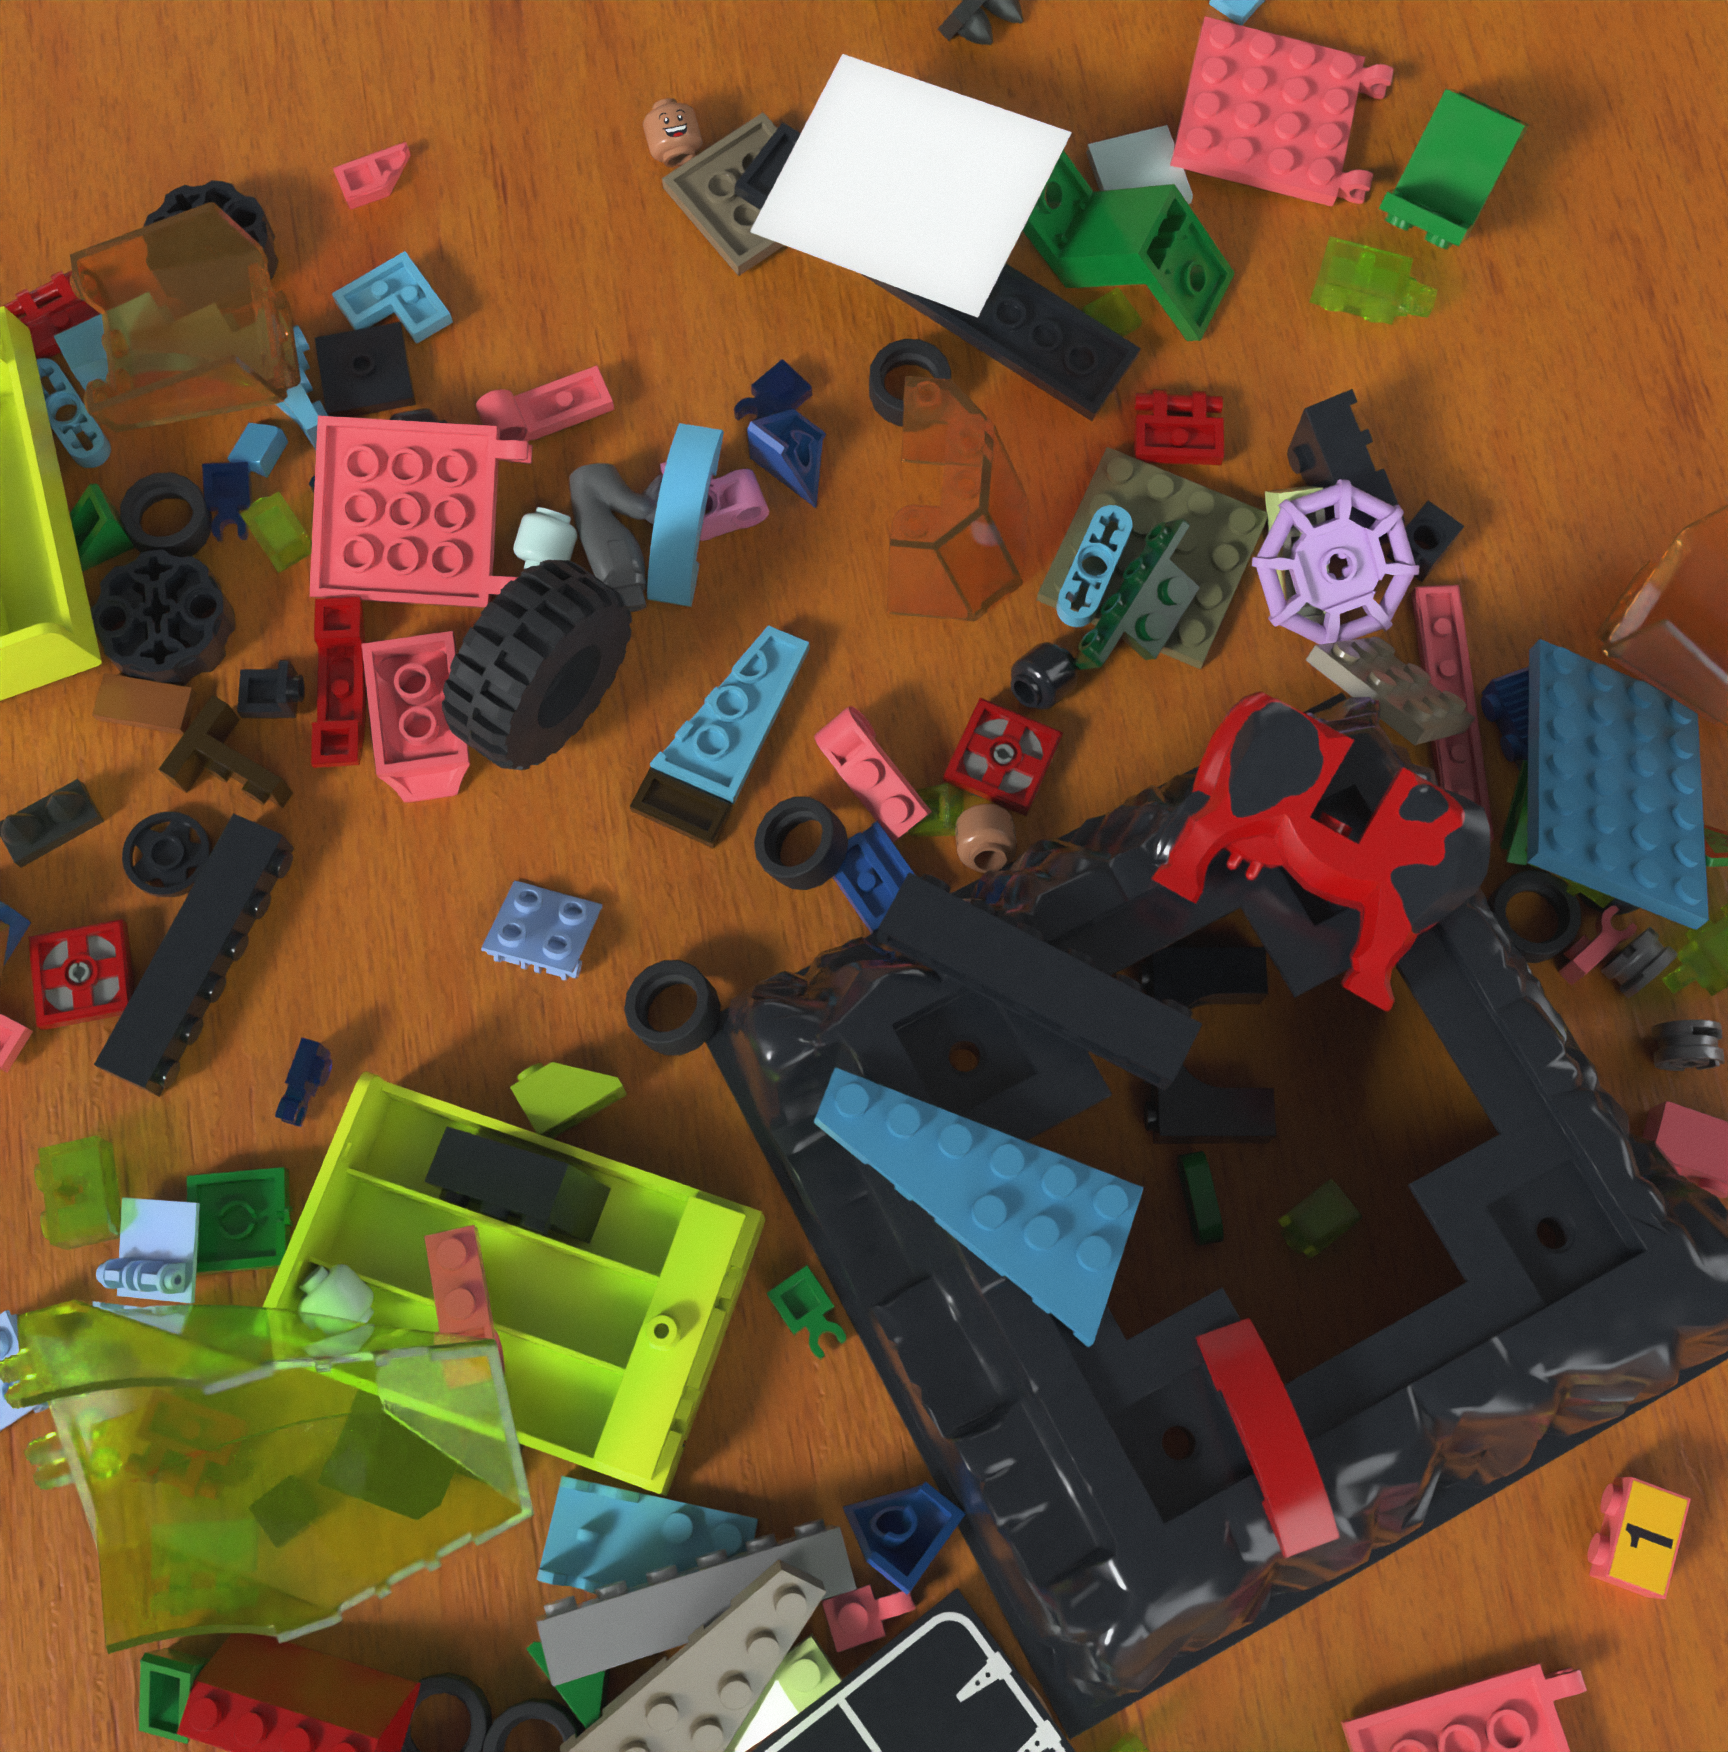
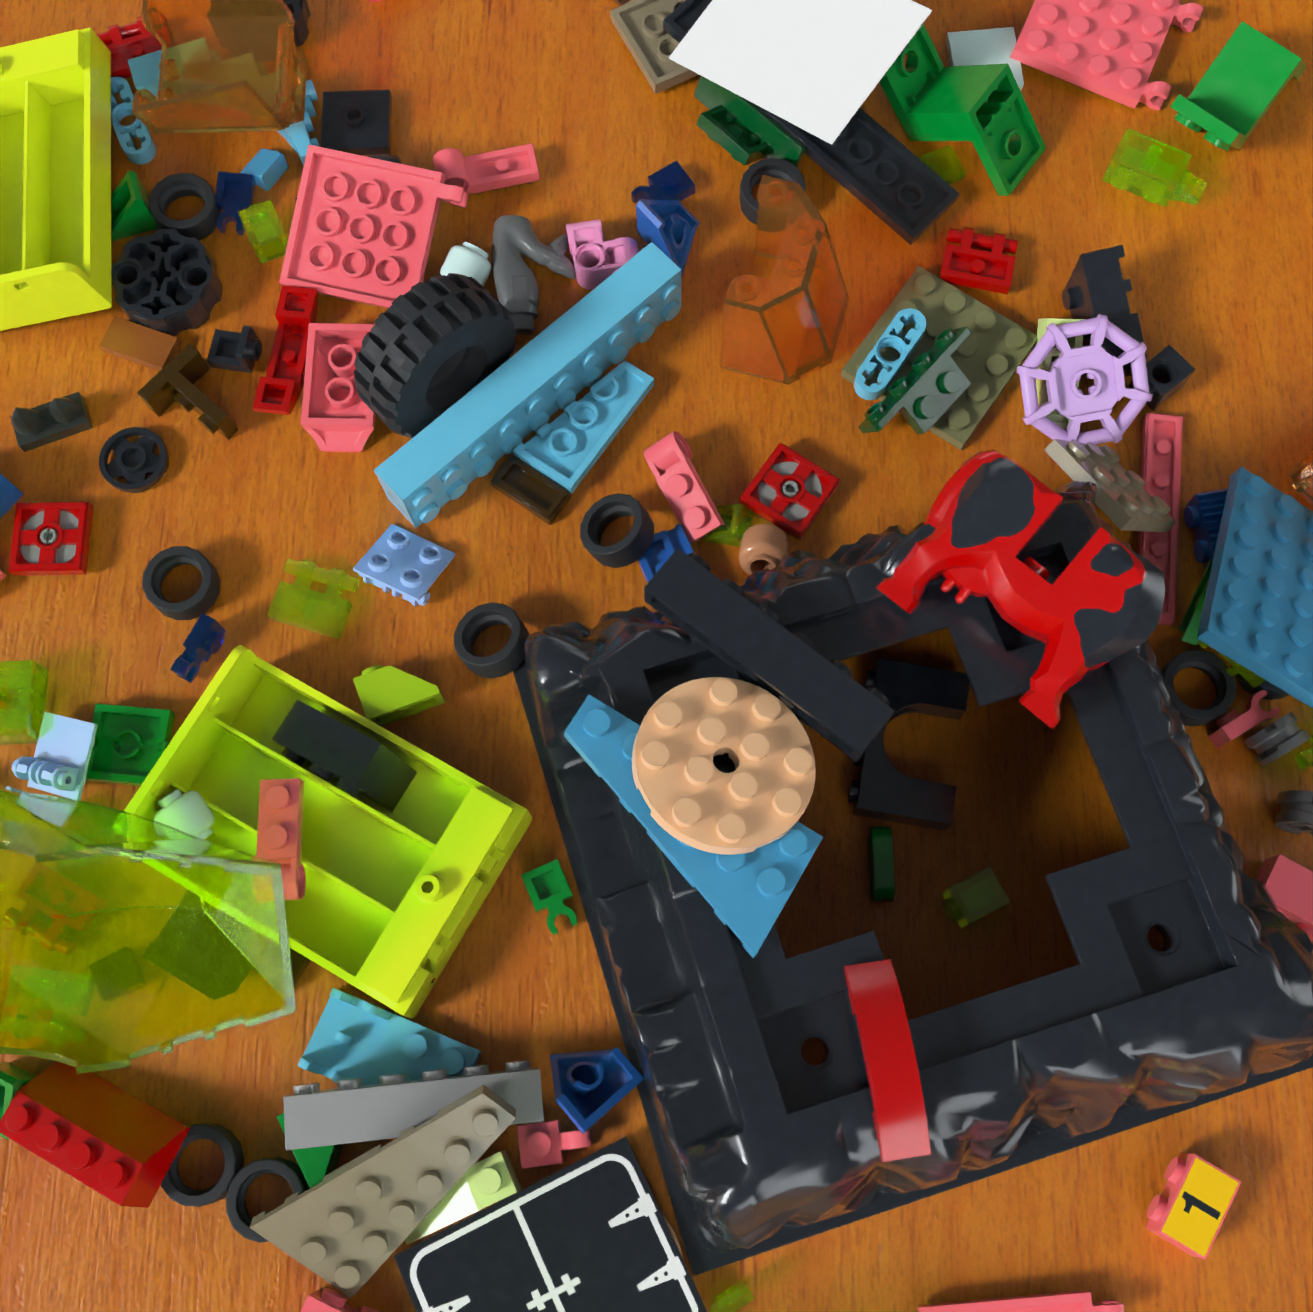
camera: 15 degrees right, 0 degrees up
(196, 956) = (143, 529): black brick -> none
(236, 980) = (169, 559): none -> black tyre
(396, 289) = (392, 65): medium azure plate -> none
(433, 1006) = (312, 609): none -> clear neon green plate
(660, 680) = (531, 386): none -> medium azure brick
(681, 514) = (574, 257): medium azure slope -> none
(859, 305) = (743, 127): none -> dark green bracket
(1003, 1176) = (716, 808): none -> light nougat plate
(1043, 676) = (833, 433): black head -> none

